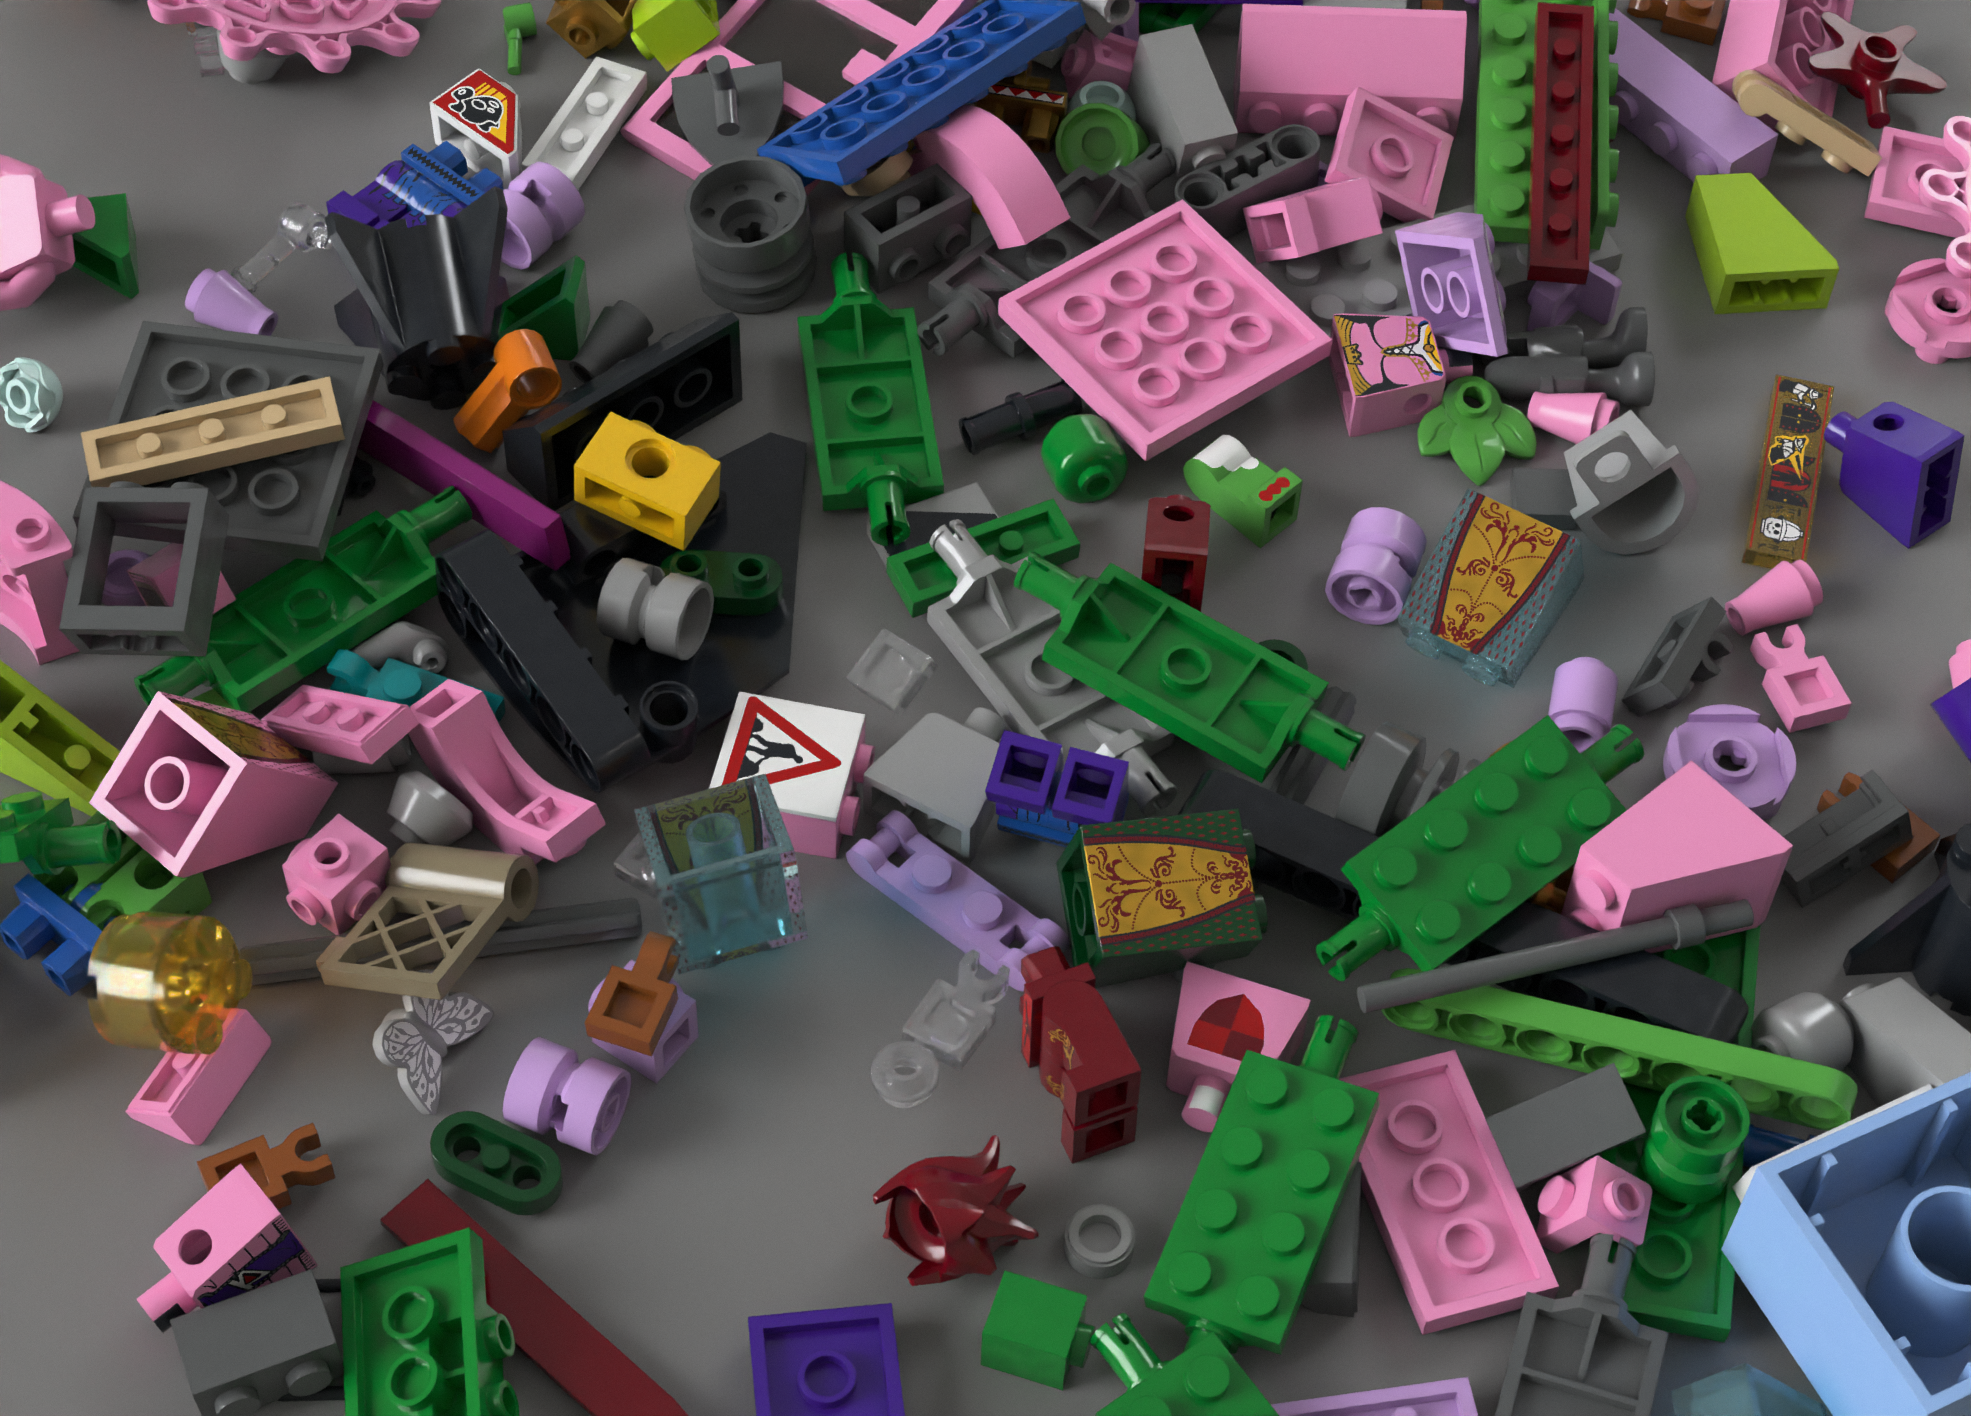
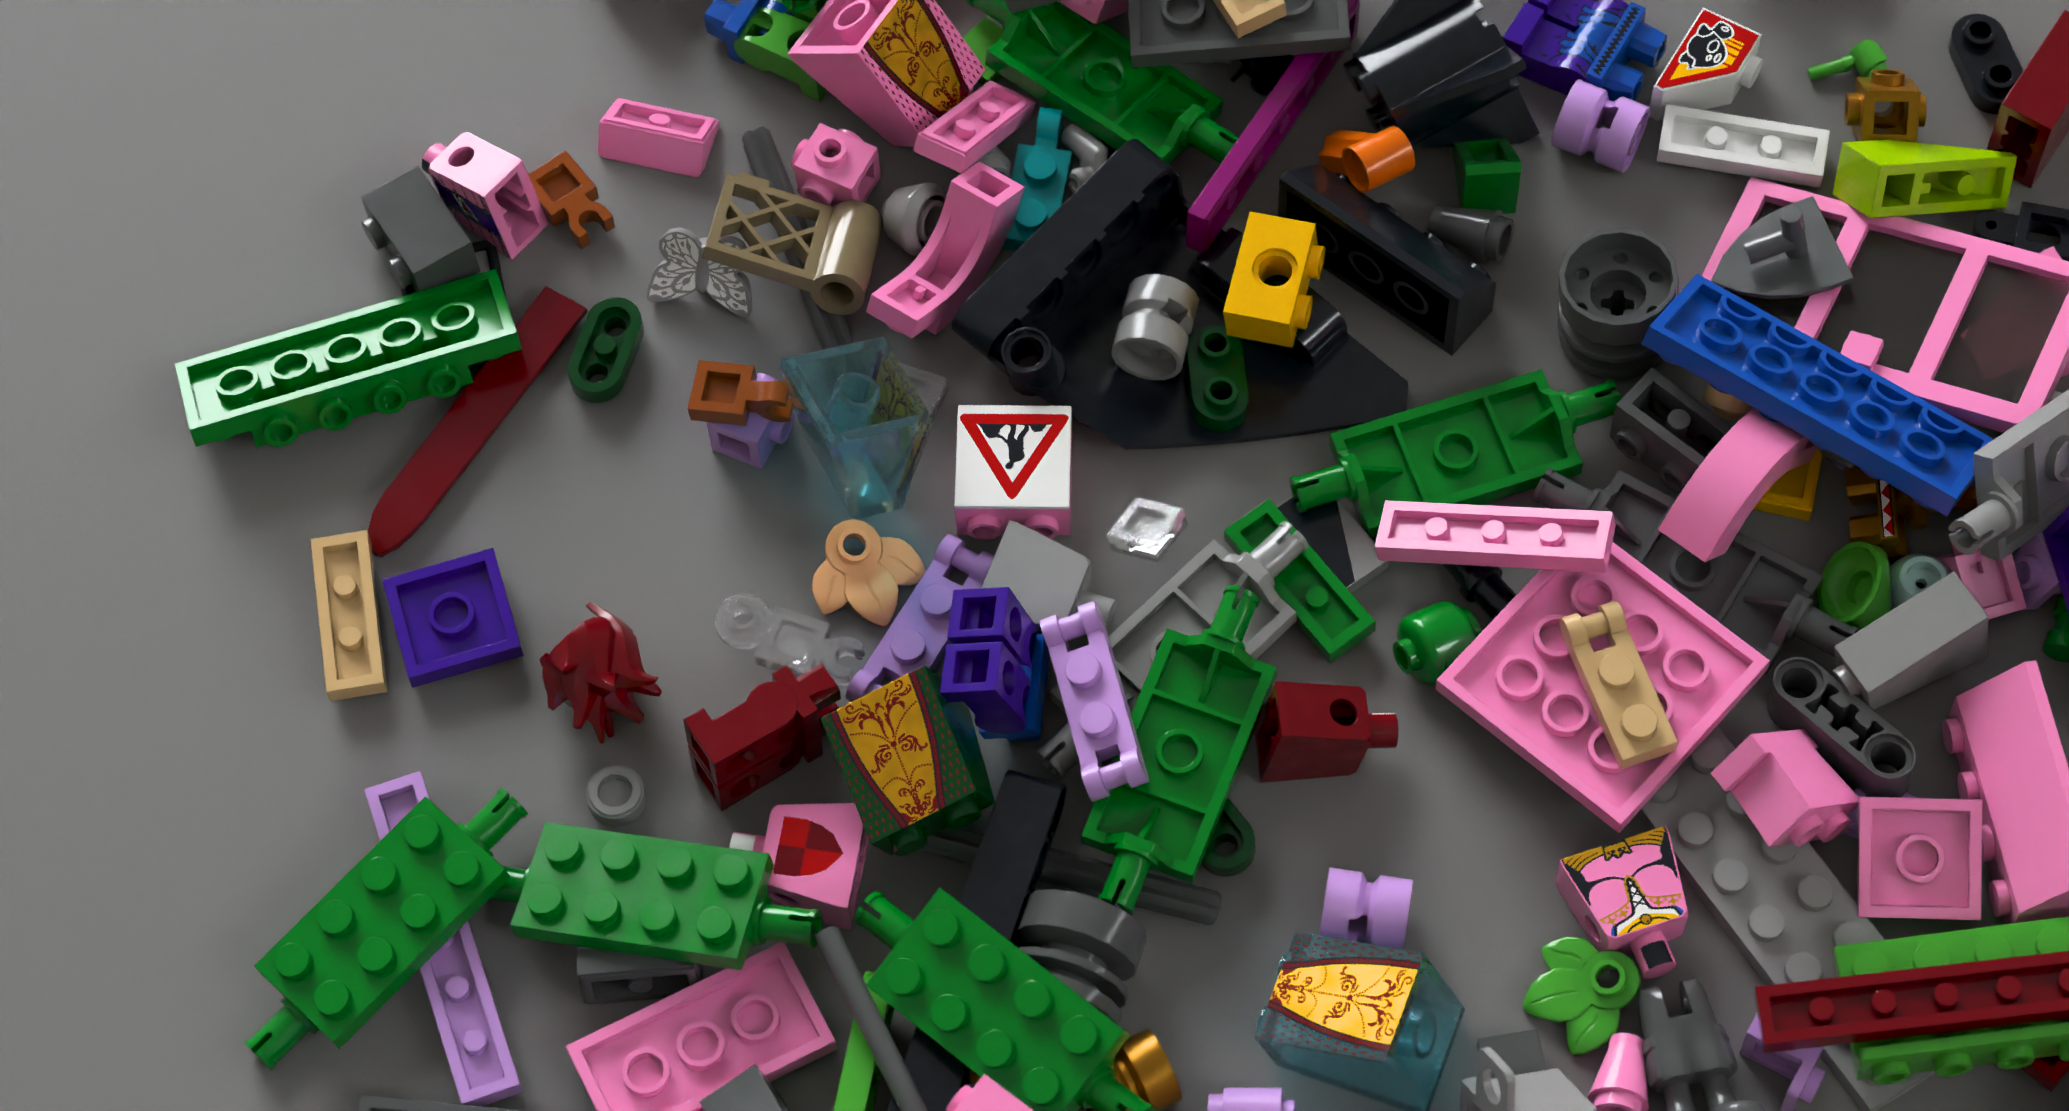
camera: 85 degrees right, 10 degrees up
(166, 981) = (698, 77): clear yellow brick -> none
(560, 1093) = (664, 378): lavender wheel -> none
(870, 945) = (868, 579): none -> light nougat plate
(1000, 366) = (1495, 536): none -> bright pink plate
(1036, 1331) = (516, 753): green brick -> none
(1129, 719) = (1094, 702): none -> lavender plate
(1189, 304) = (1618, 686): none -> tan plate
(1244, 489) = (1441, 787): bright green leg -> none
(1455, 282) = (1717, 931): lavender slope -> none

